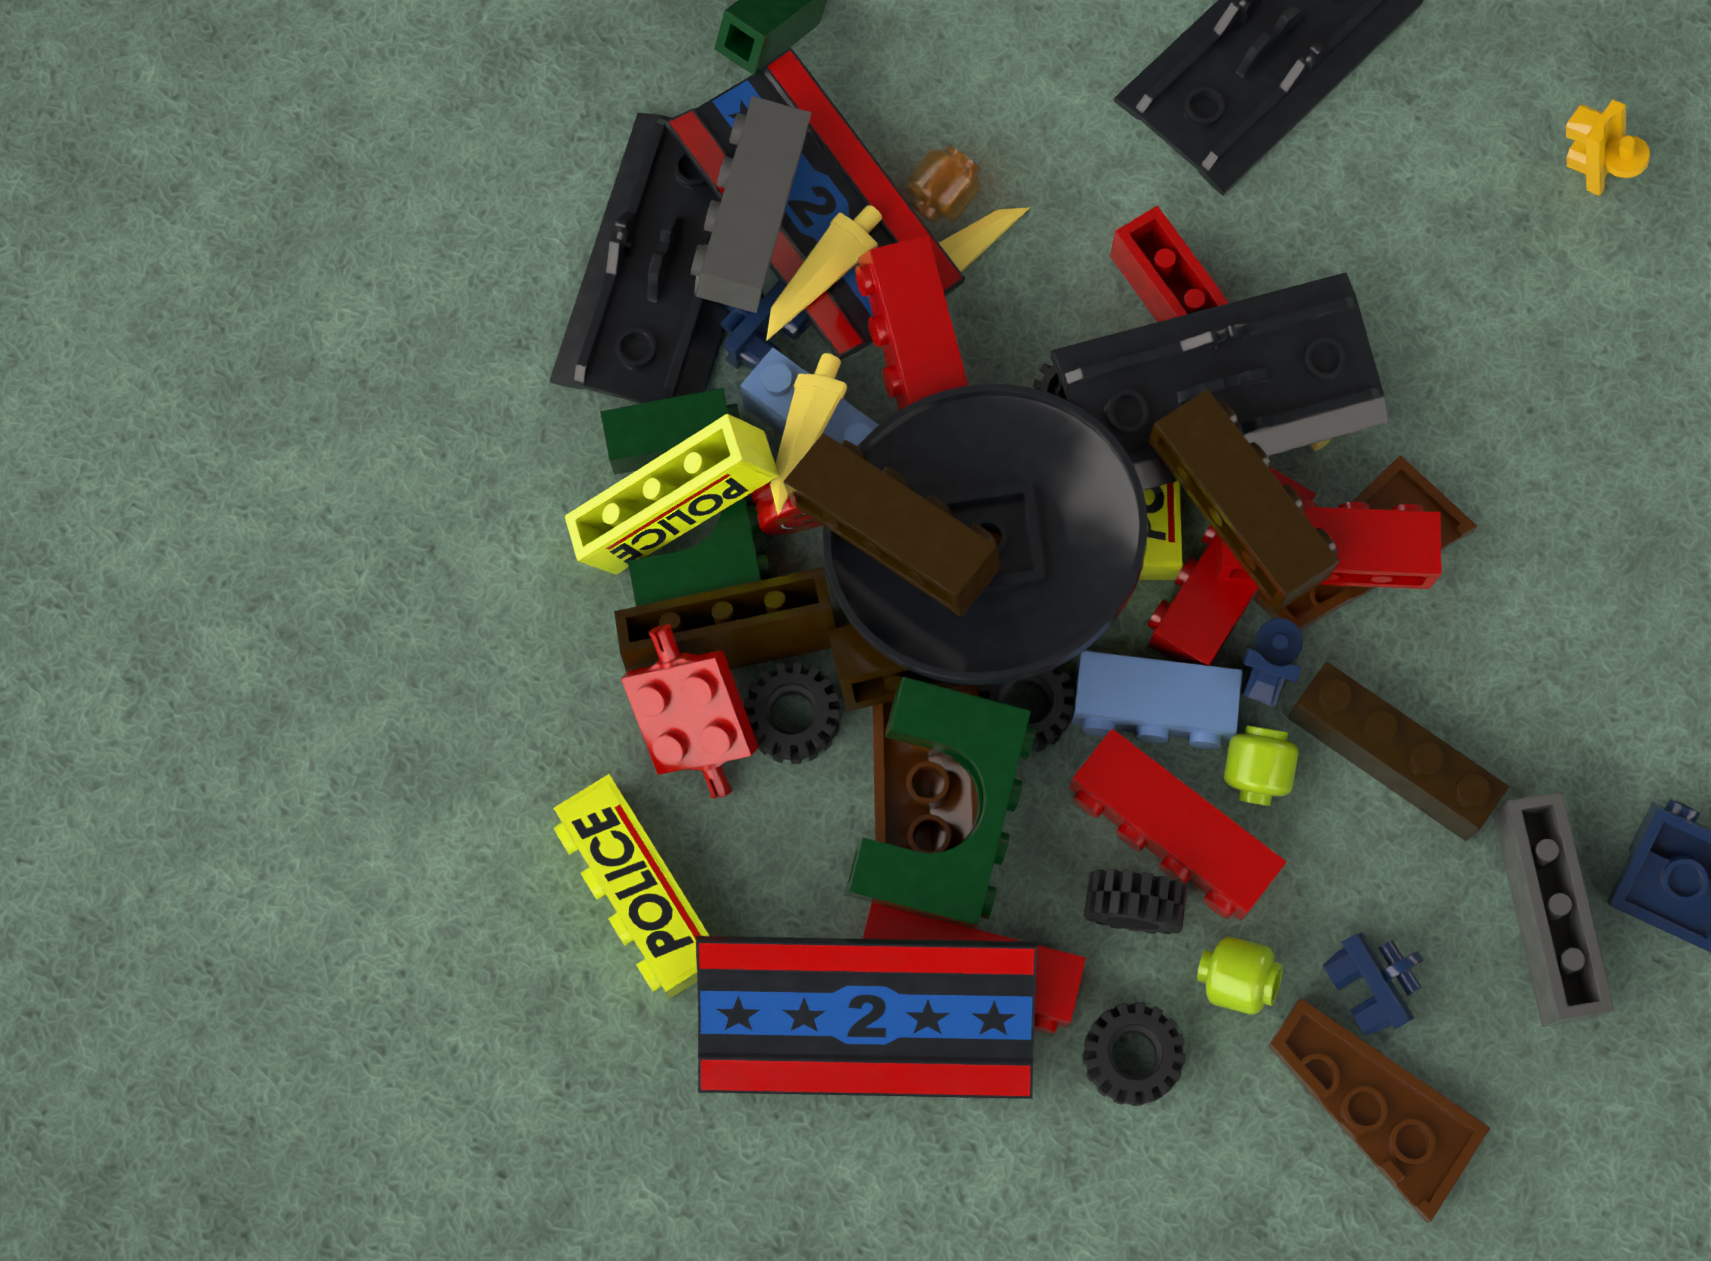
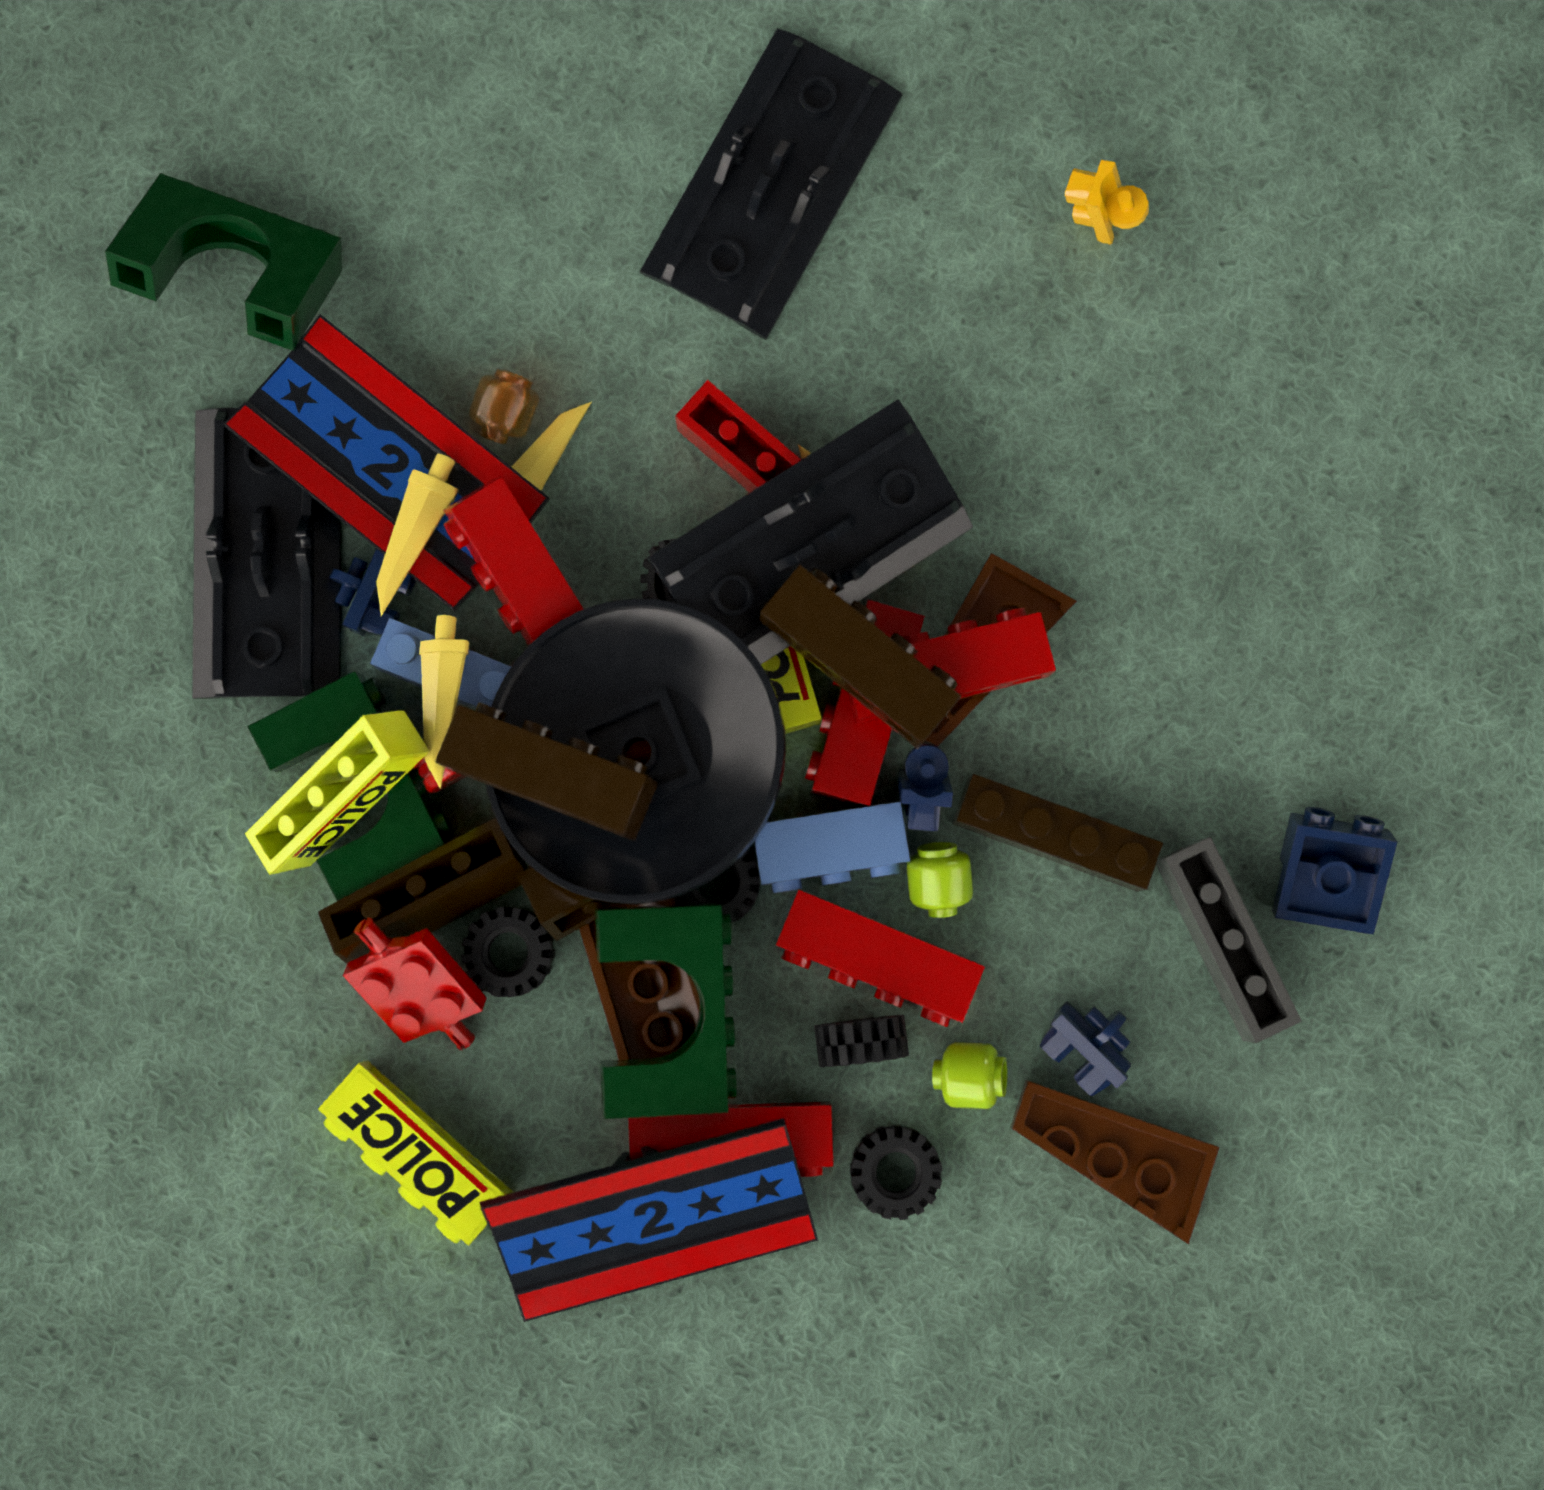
camera: 20 degrees left, 10 degrees up
(752, 205) = (328, 487): dark grey brick -> none

